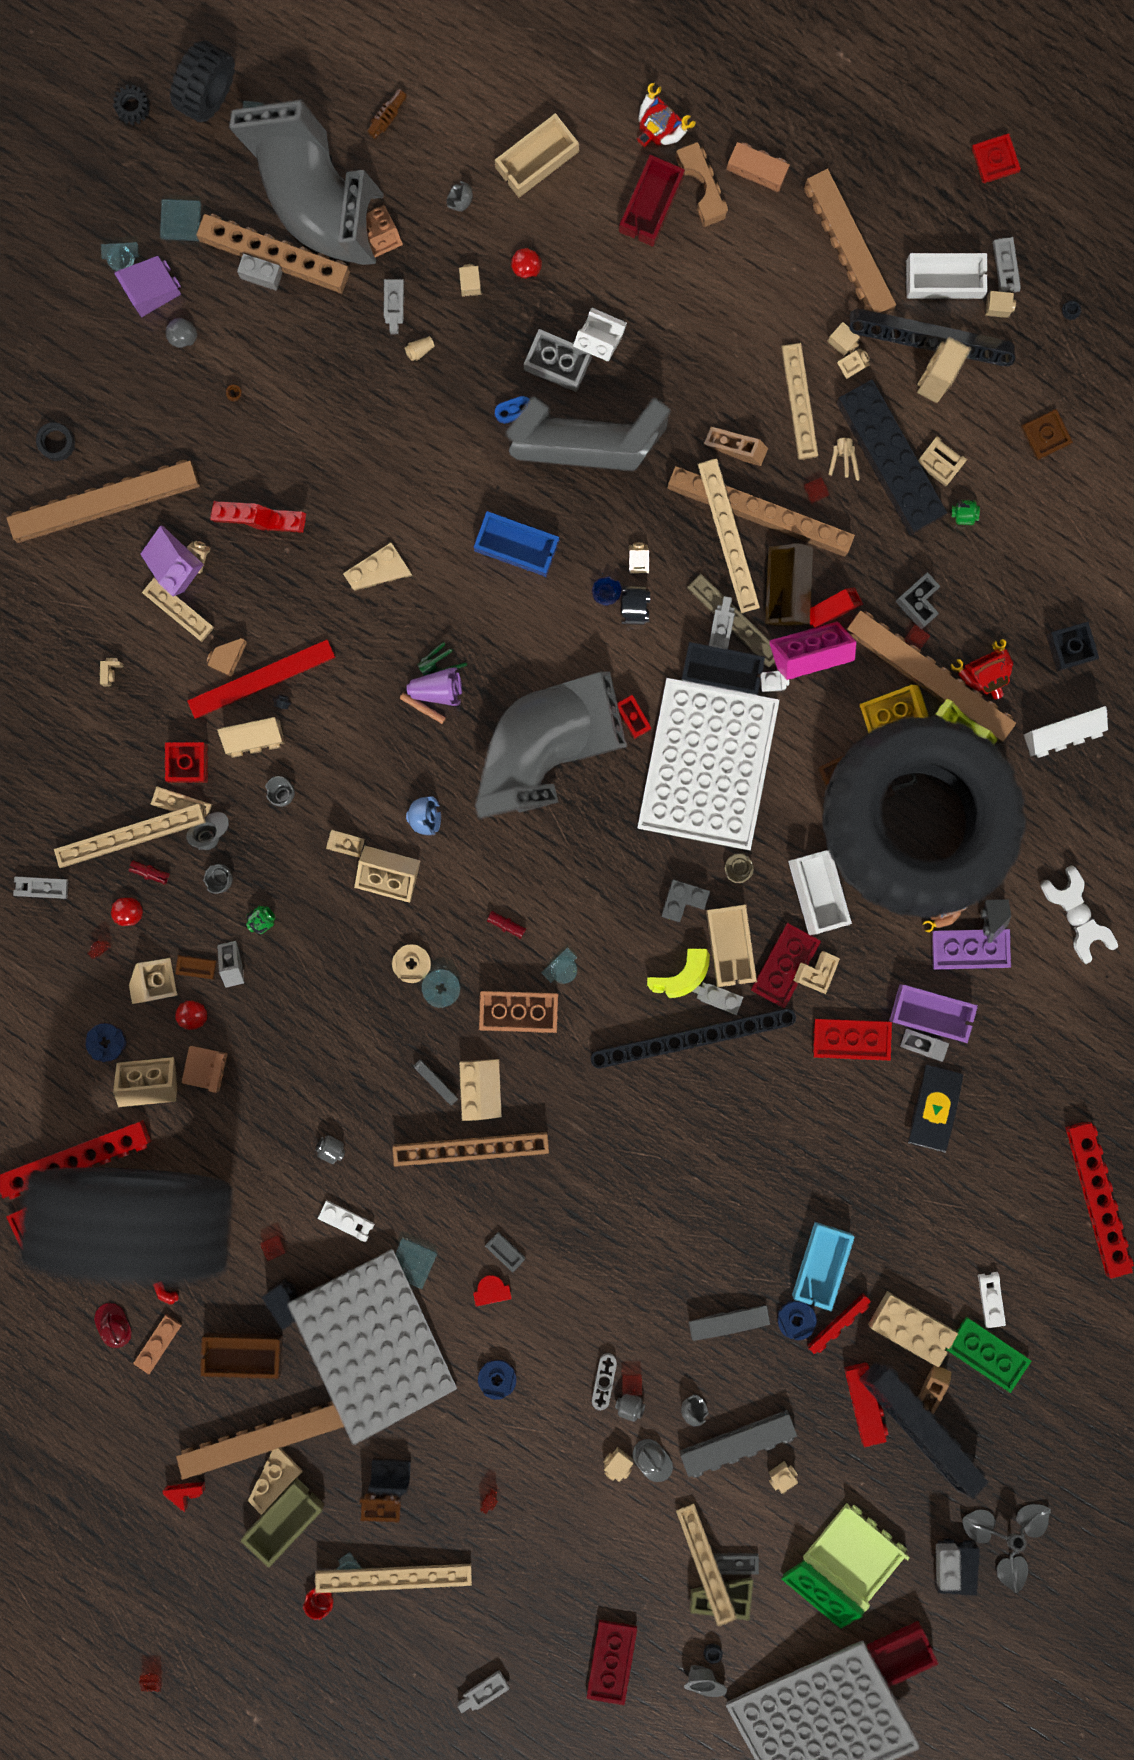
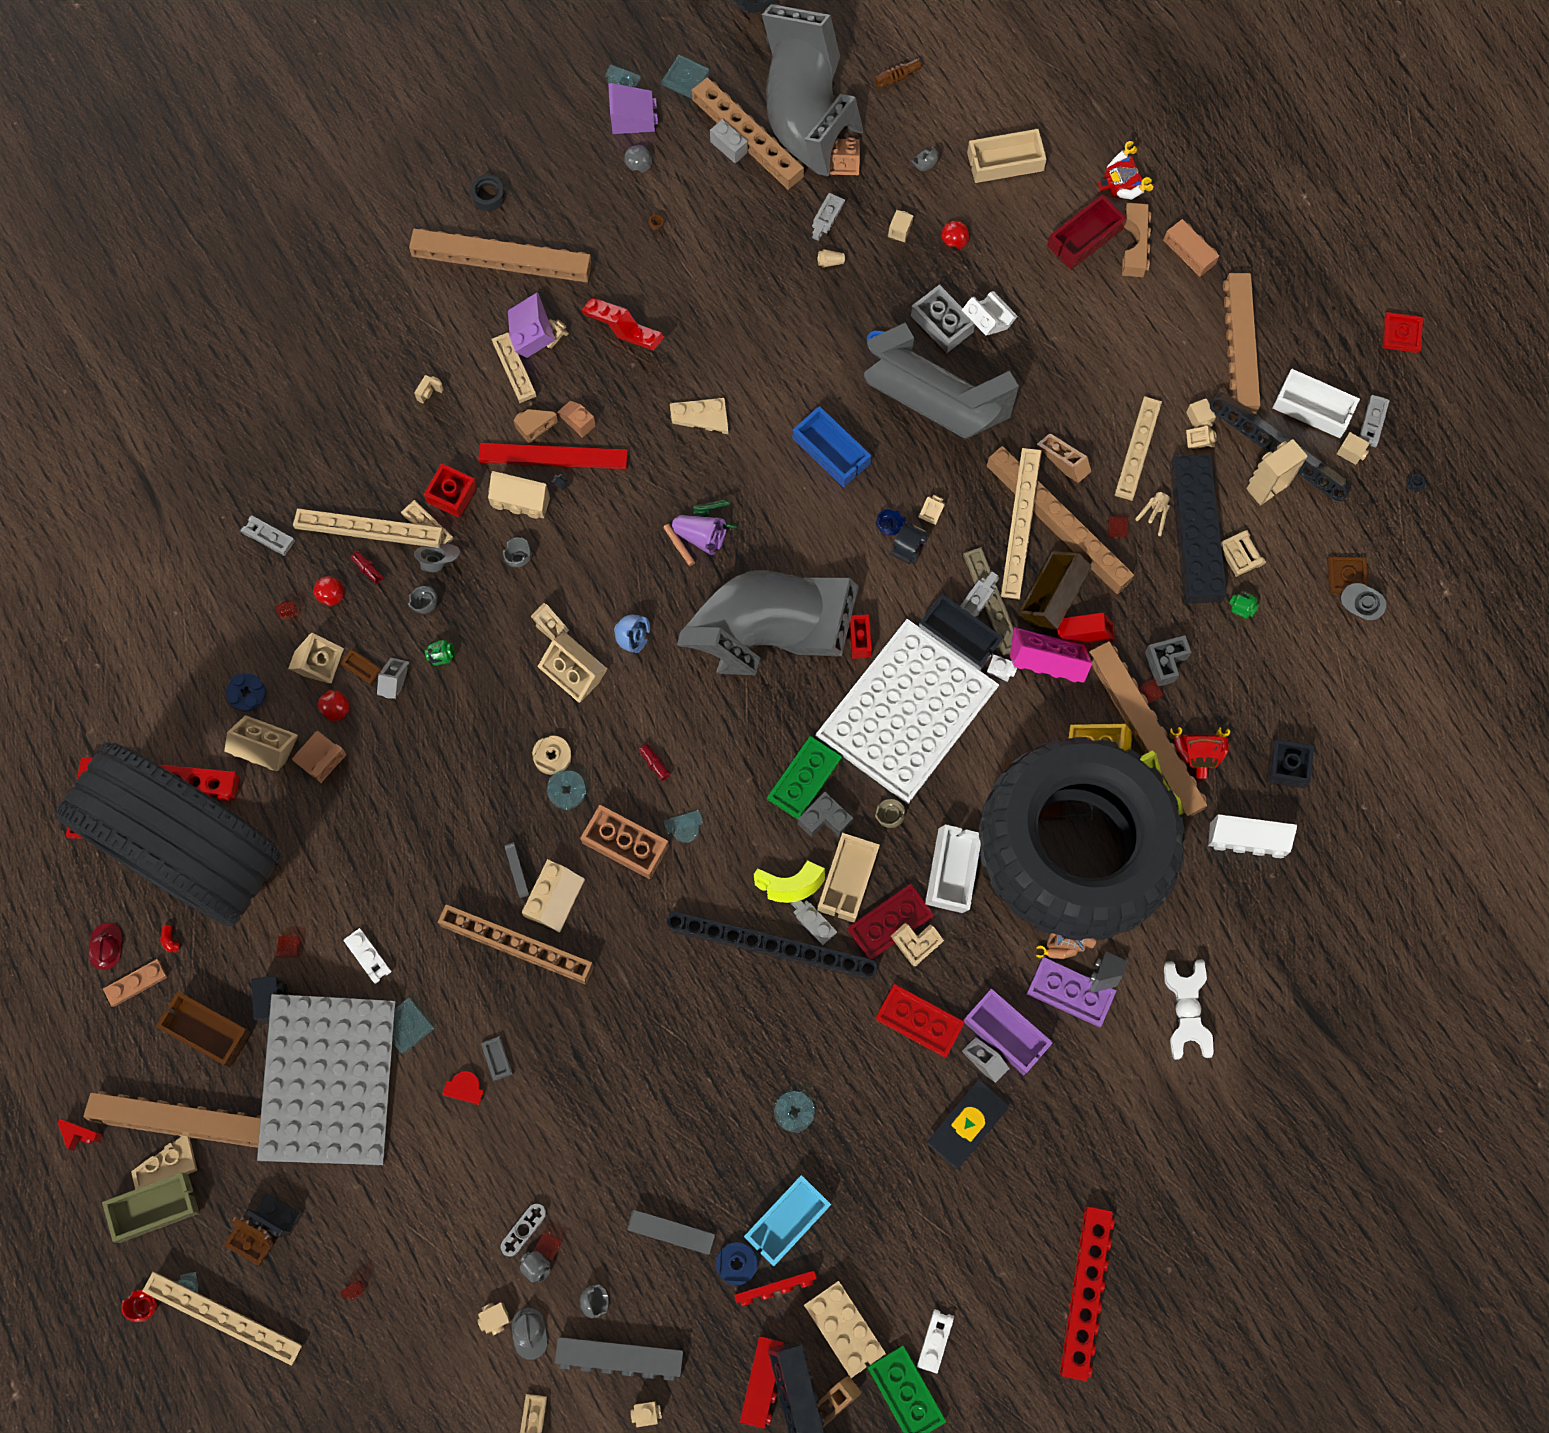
camera: 30 degrees right, 15 degrees down
(263, 630) = (577, 418): none -> nougat slope
(330, 1149) = (389, 882): dark grey head -> none
(490, 1370) = (436, 1175): dark blue plate -> none
(646, 872) = (804, 778): none -> green plate
(782, 1159) = (783, 1107): none -> clear light blue plate
(1073, 456) = (1363, 601): none -> dark grey piece

